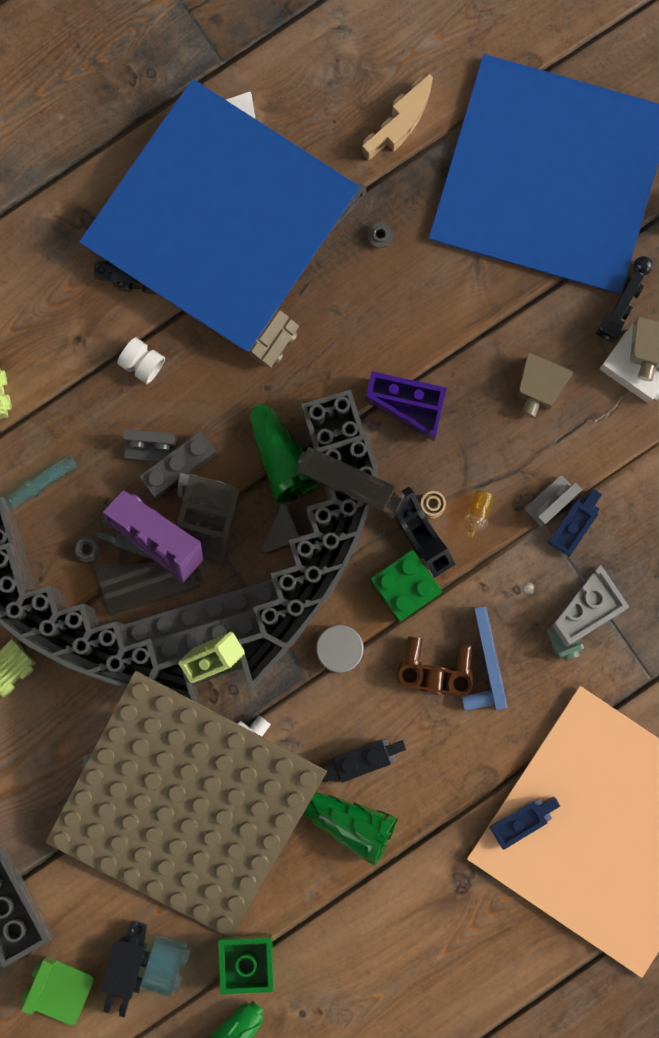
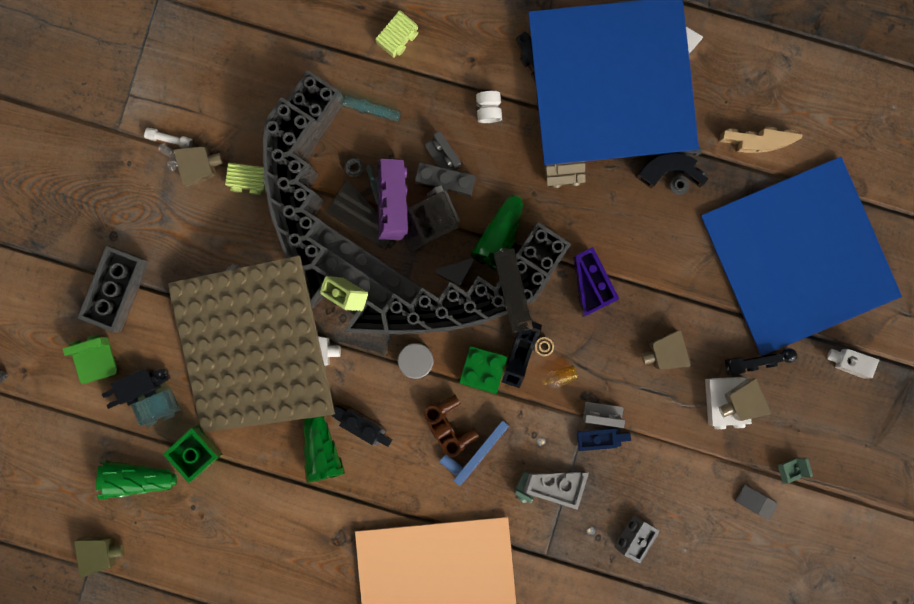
camera: 55 degrees right, 5 degrees up
(352, 223) = (672, 163): none -> black arch
(523, 821) = (402, 548): dark blue hinge -> none

